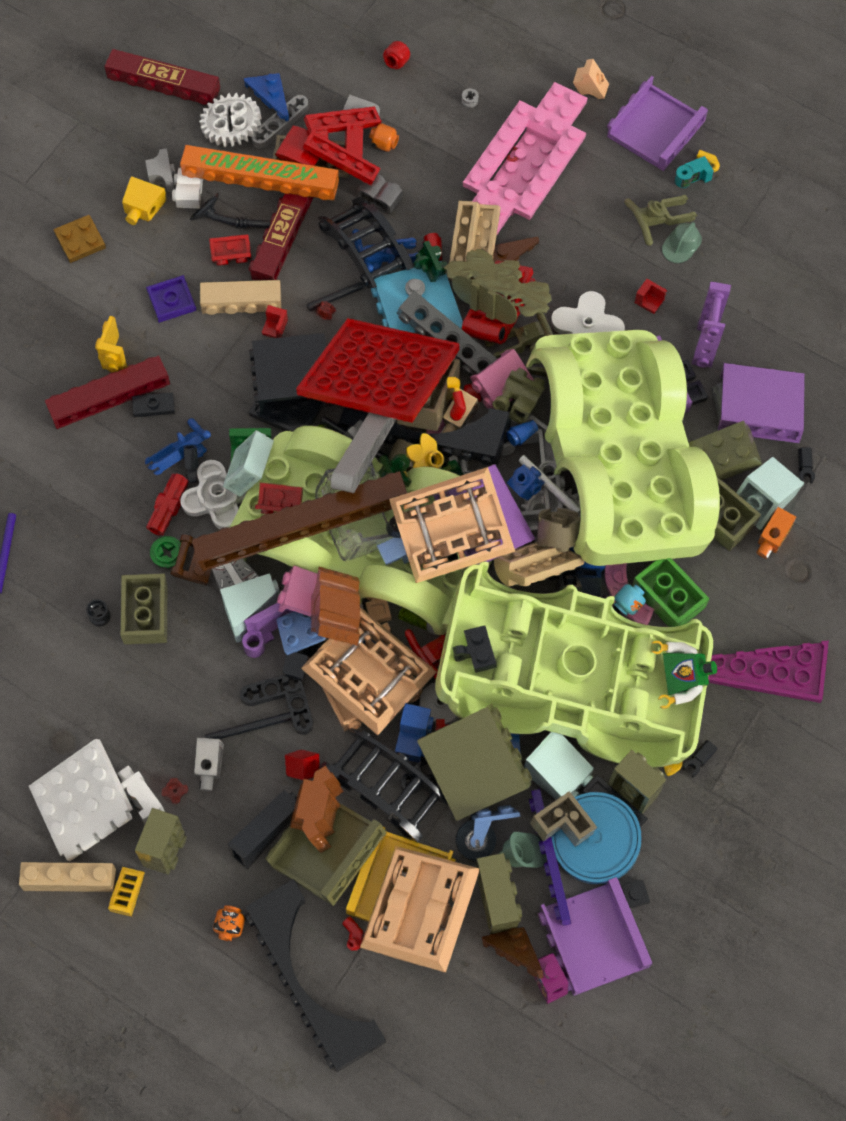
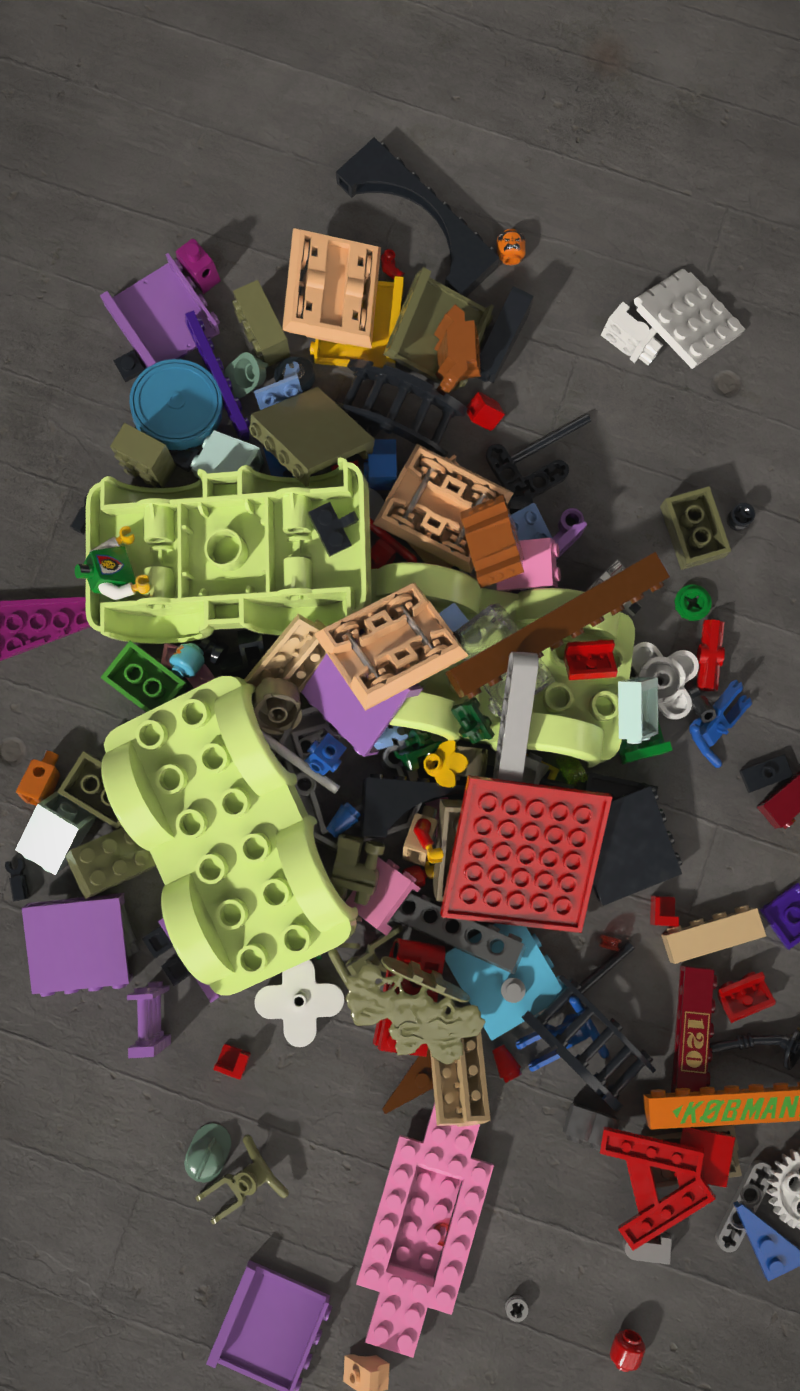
camera: 165 degrees right, 15 degrees up
(67, 877) = (676, 250): tan brick -> none
(122, 909) = (616, 239): yellow slope -> none
(160, 841) = (598, 289): olive brick -> none
(173, 784) = (602, 353): clear red plate -> none
(195, 572) = (653, 604): reddish brown plate -> none
(208, 752) = (578, 389): light grey torso -> none
(248, 599) = (590, 555): light aqua slope -> none
(384, 137) = (608, 1211): orange head -> none
(428, 261) = (507, 1028): dark green hips -> none
(516, 949) = (227, 271): reddish brown wing -> none
(565, 815) = (212, 401): dark tan brick -> none
(693, 171) = (210, 1264): teal leg -> none
(712, 159) = (192, 1290): yellow arm -> none

